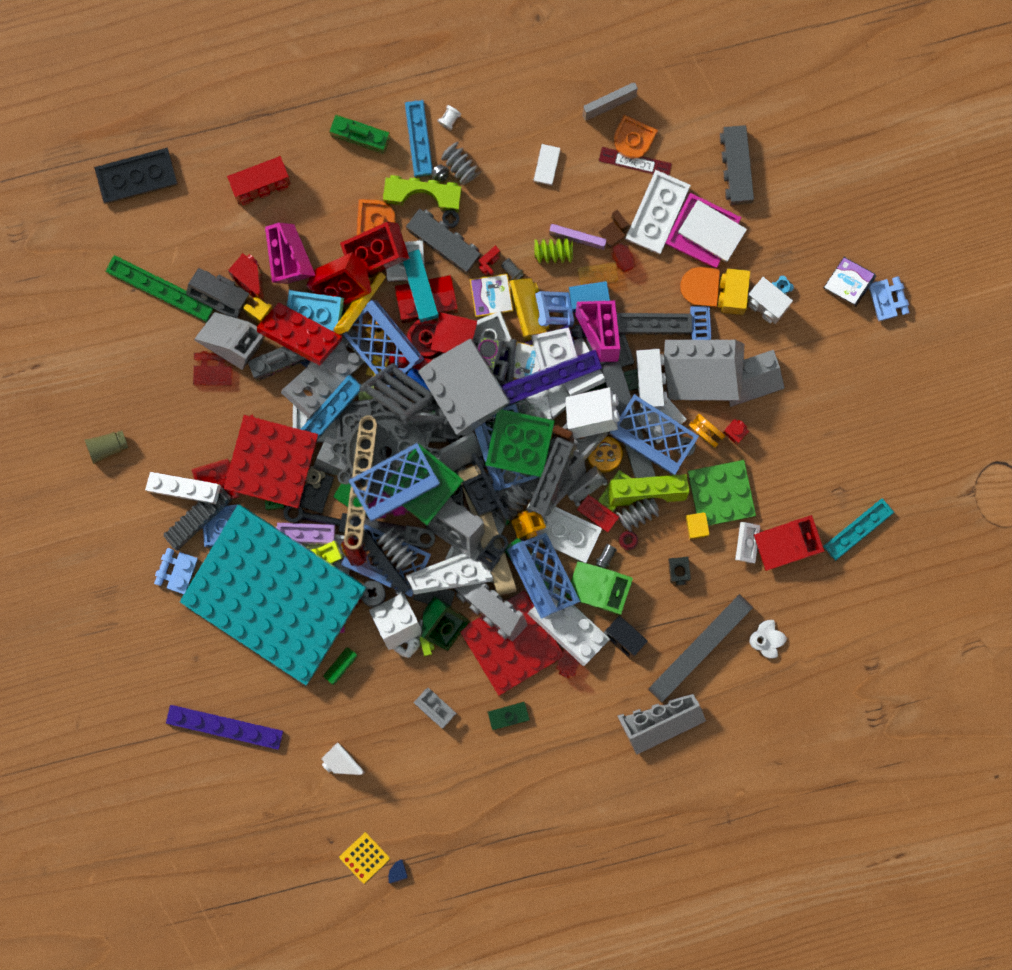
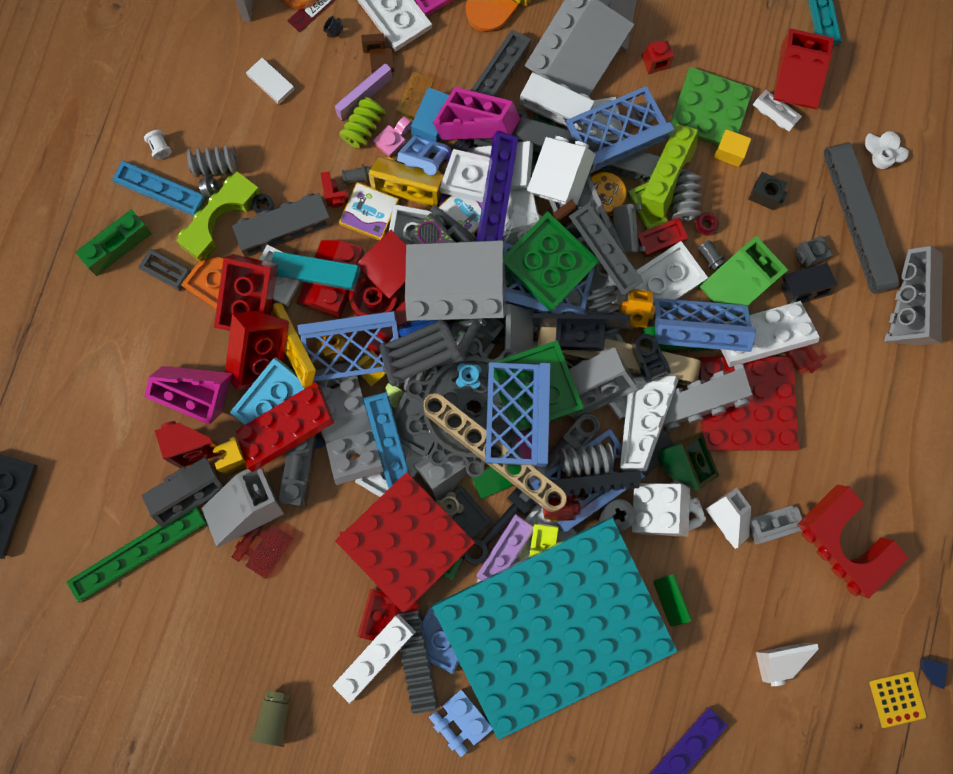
camera: 65 degrees left, 5 degrees down
(259, 181) = (90, 372): red brick -> none
(363, 196) = (180, 278): none -> dark grey tile
(403, 440) = (474, 371): none -> medium azure plate
(421, 674) = (732, 516): none -> white slope
(426, 646) = (704, 494): lime plate -> none
(435, 785) = (823, 529): none -> red arch
(508, 716) = (824, 452): dark green plate -> none
(555, 278) = (391, 139): none -> bright pink plate
(614, 183) = (333, 26): none -> black plate
(623, 257) = (413, 61): clear red brick -> none
(653, 628) = (813, 252): none -> dark grey bracket
(706, 309) = (537, 26): medium blue slope -> none
(706, 429) = (640, 77): light orange head -> none

